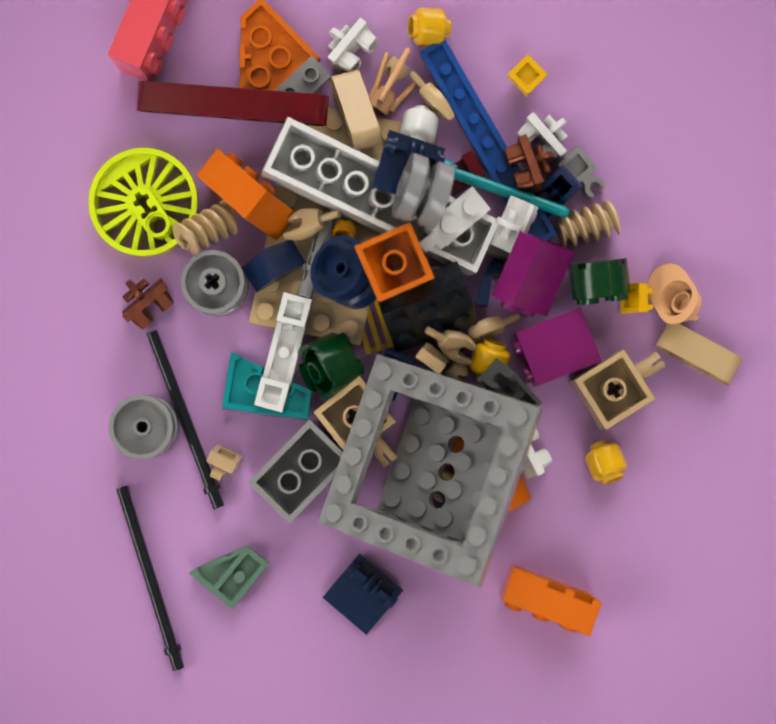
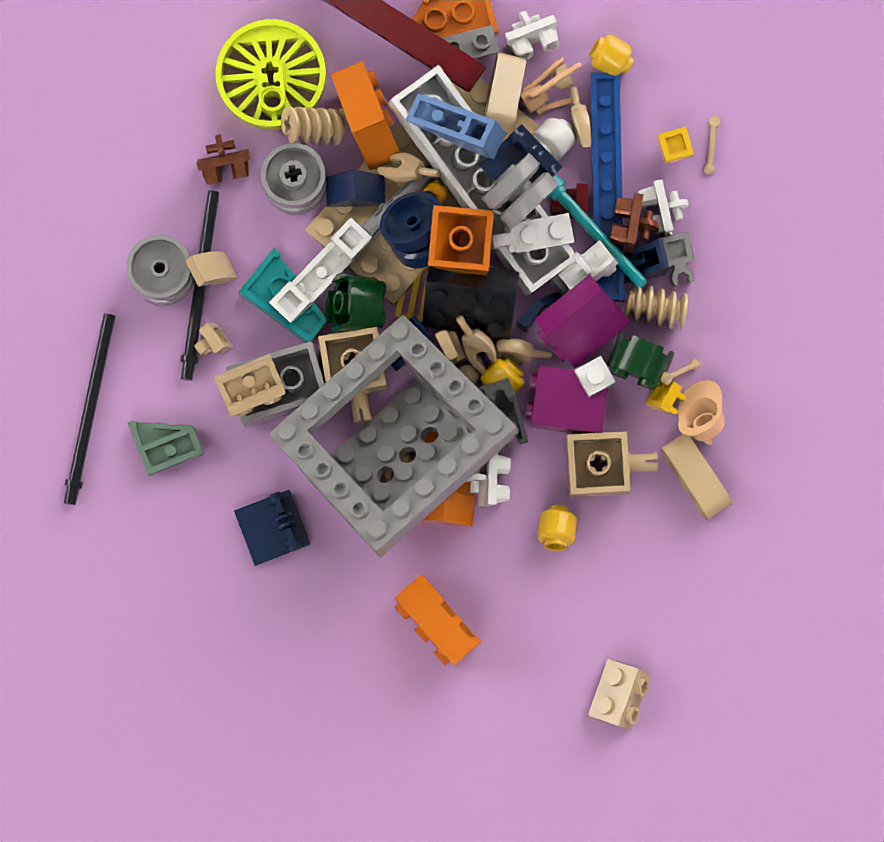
camera: 25 degrees right, 5 degrees down
(187, 402) = (211, 268): none -> tan slope
(280, 490) = (250, 386): none -> tan bracket
(334, 162) = (457, 125): none -> medium blue slope
(547, 38) = (713, 122): none -> tan hinge
(570, 316) = (594, 376): none -> white plate
(643, 257) = (666, 377): none -> tan hinge
(734, 575) = (619, 694): none -> tan bracket

